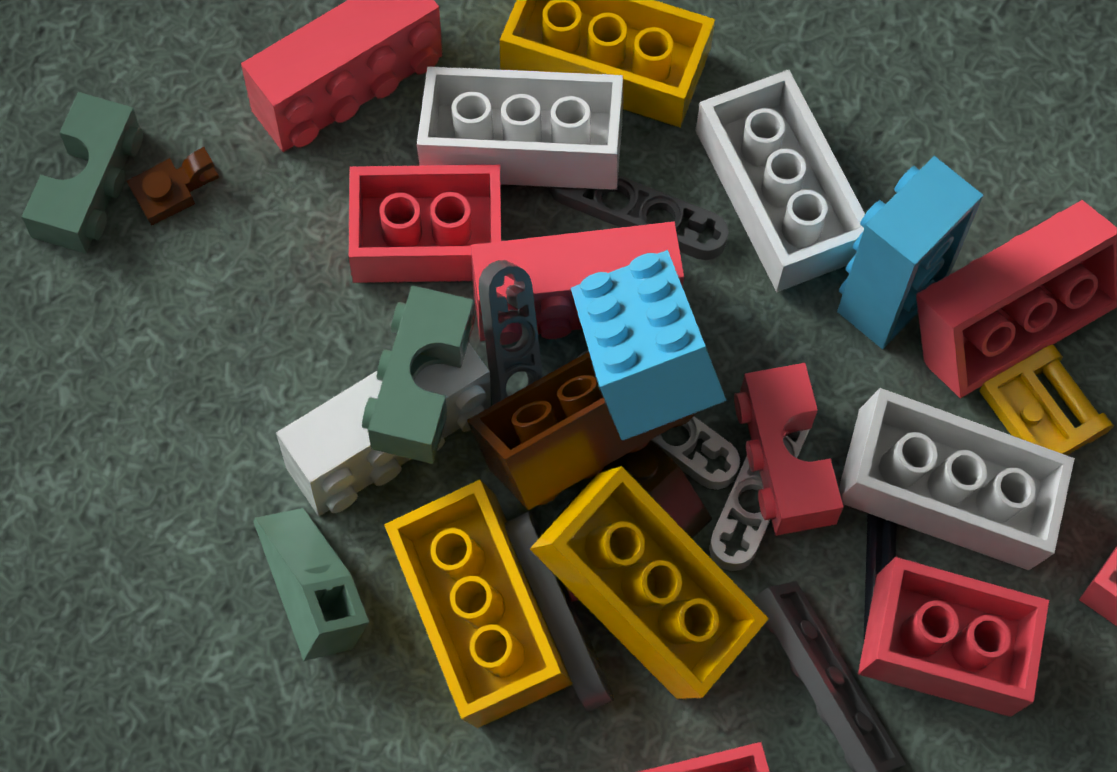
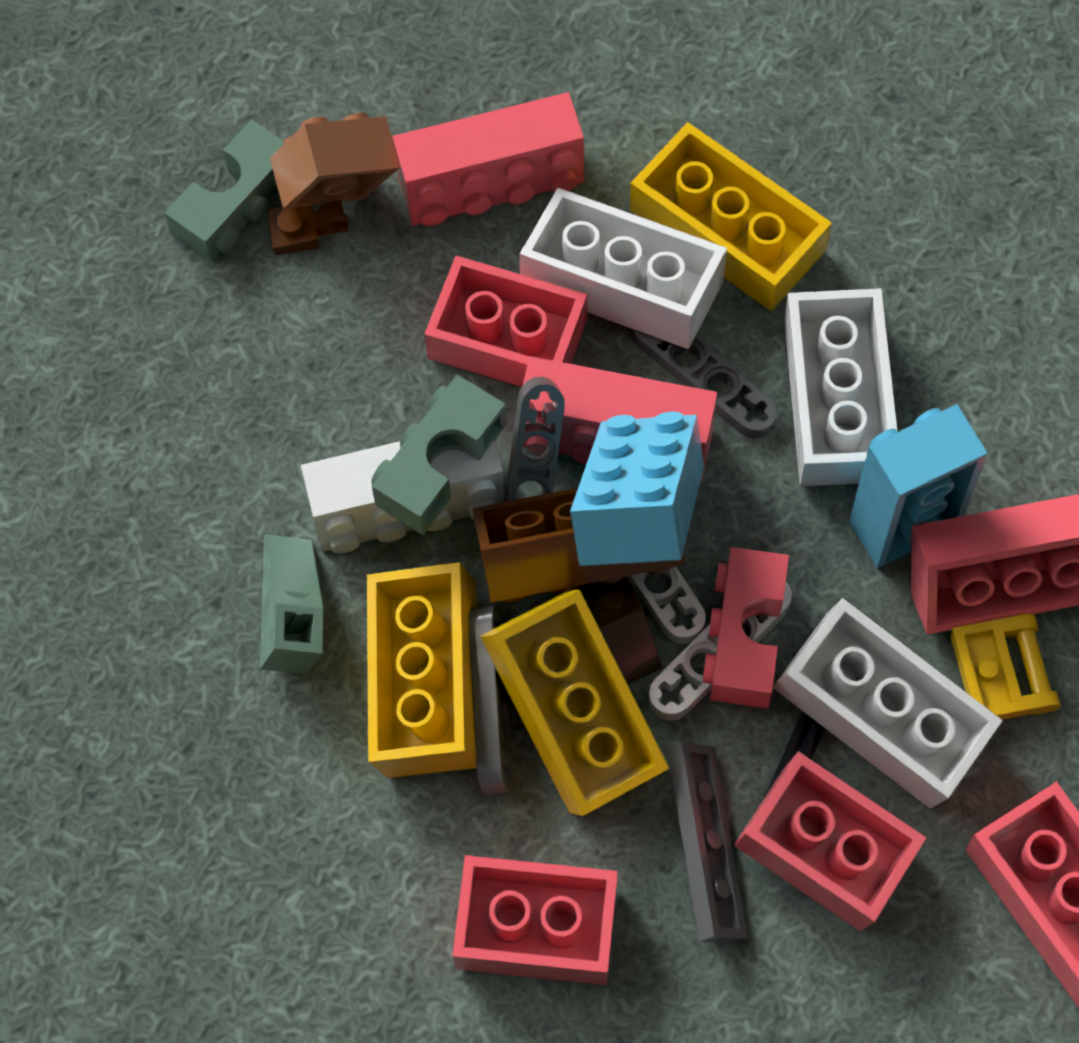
camera: 25 degrees right, 0 degrees up
(185, 107) = (334, 160): none -> nougat brick

